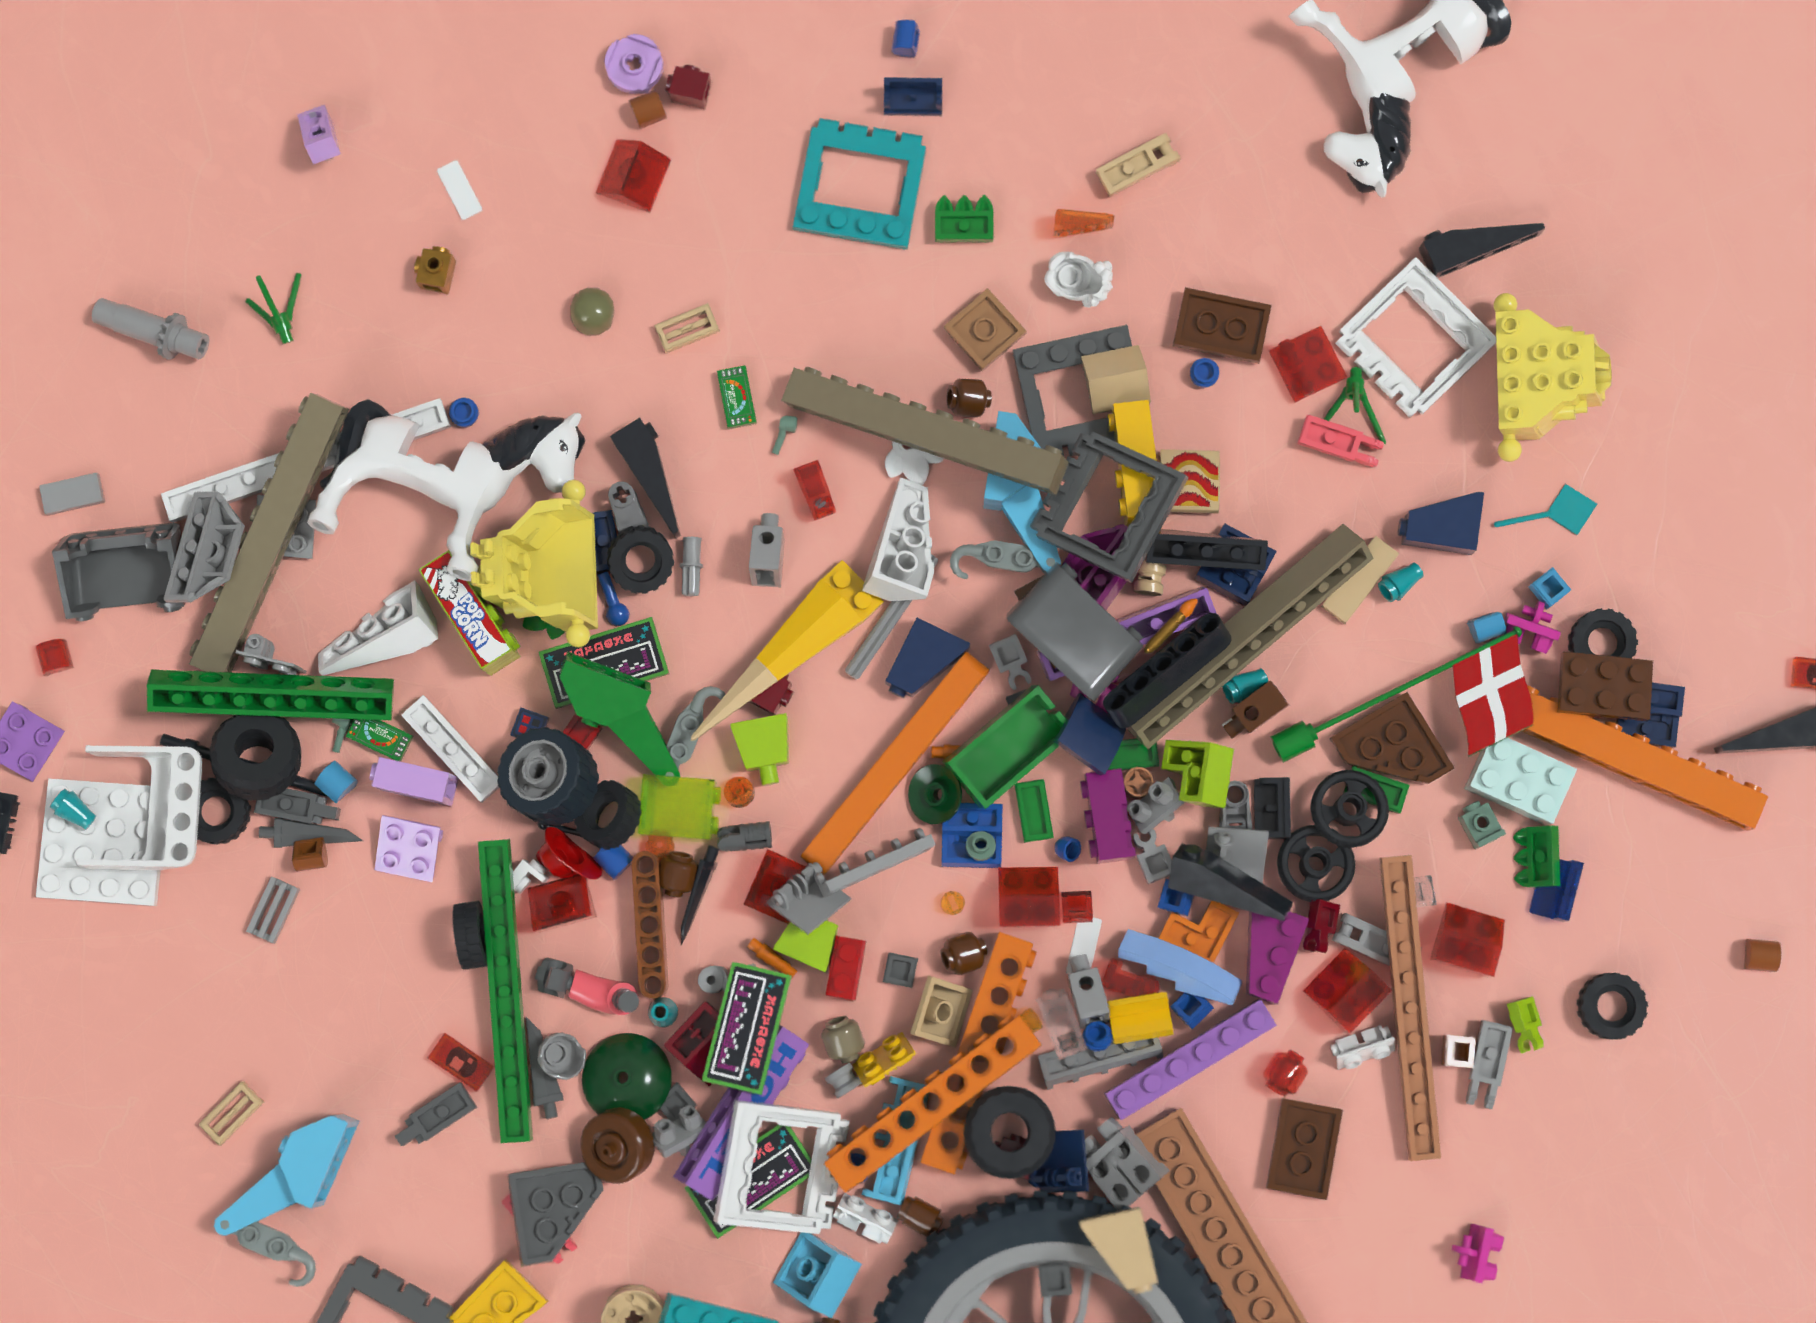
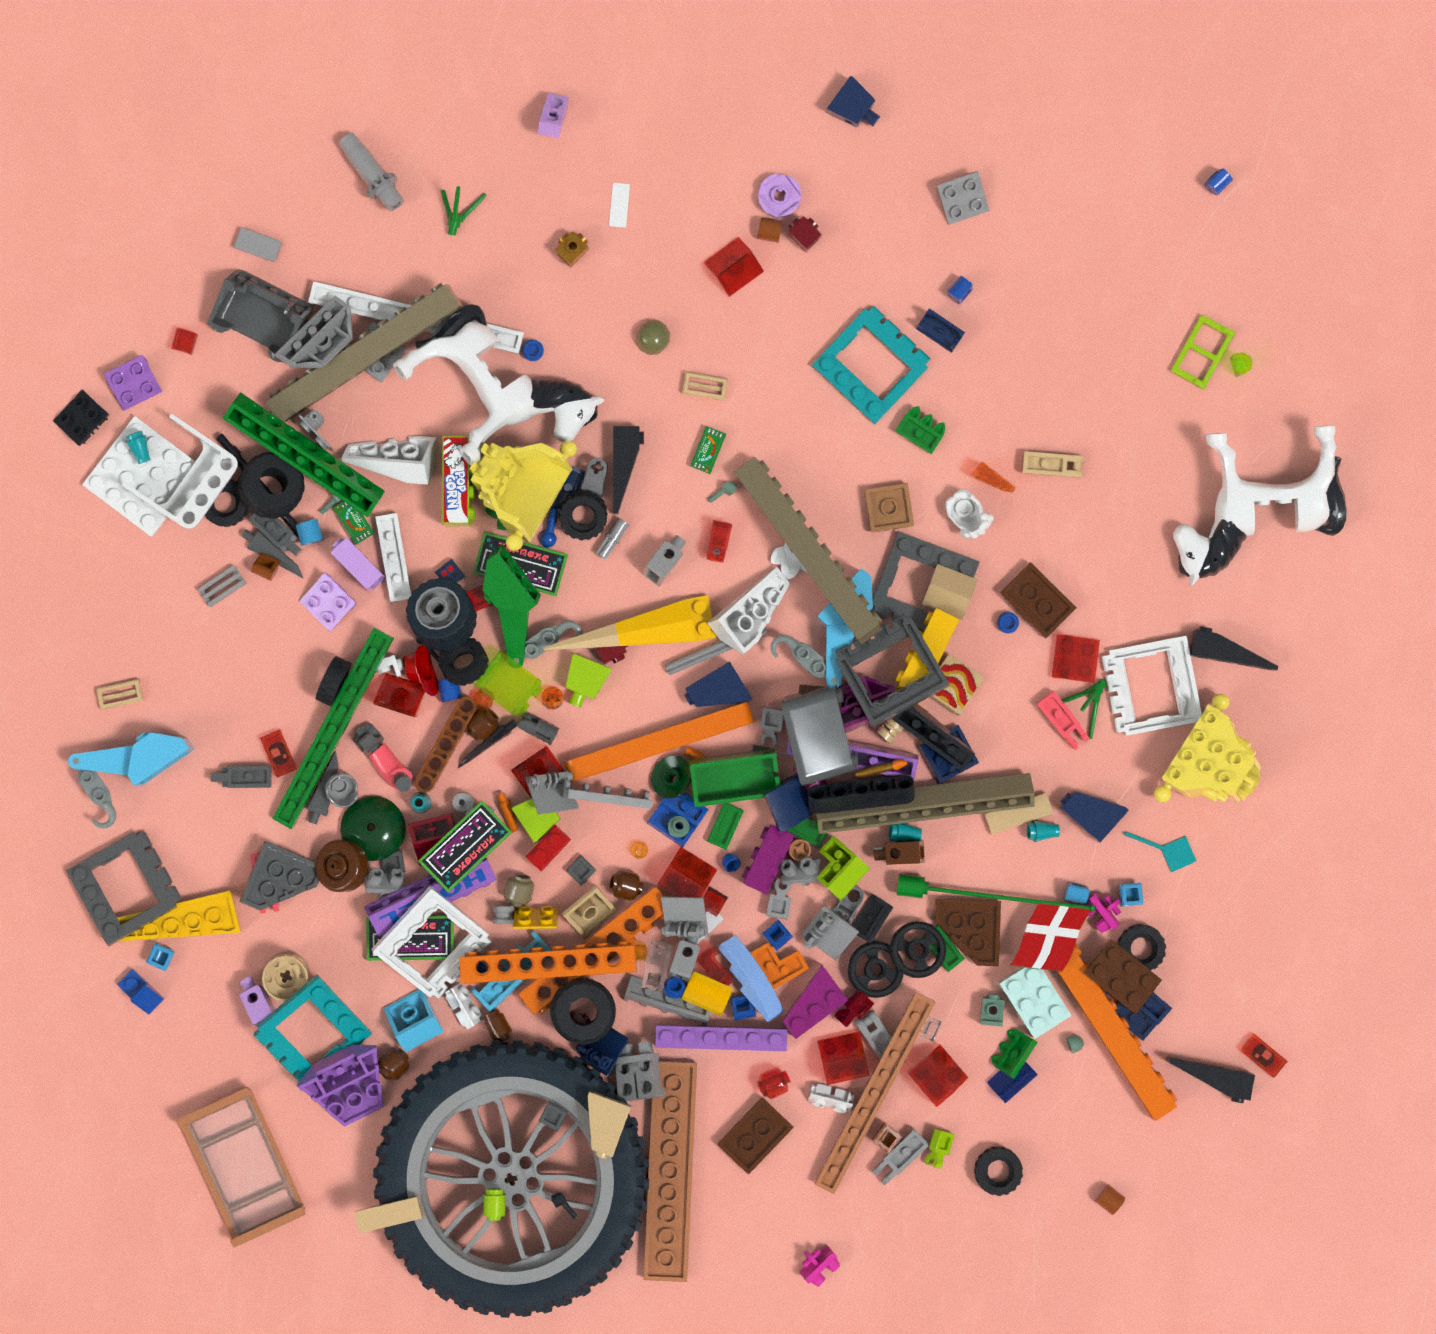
camera: 20 degrees right, 5 degrees up
(968, 397) = (851, 544): reddish brown head -> none
(1056, 944) = (684, 917): none -> light grey hinge
(1213, 878) = (807, 941): black slope -> none
(1600, 801) = (1075, 1043): none -> sand green hinge

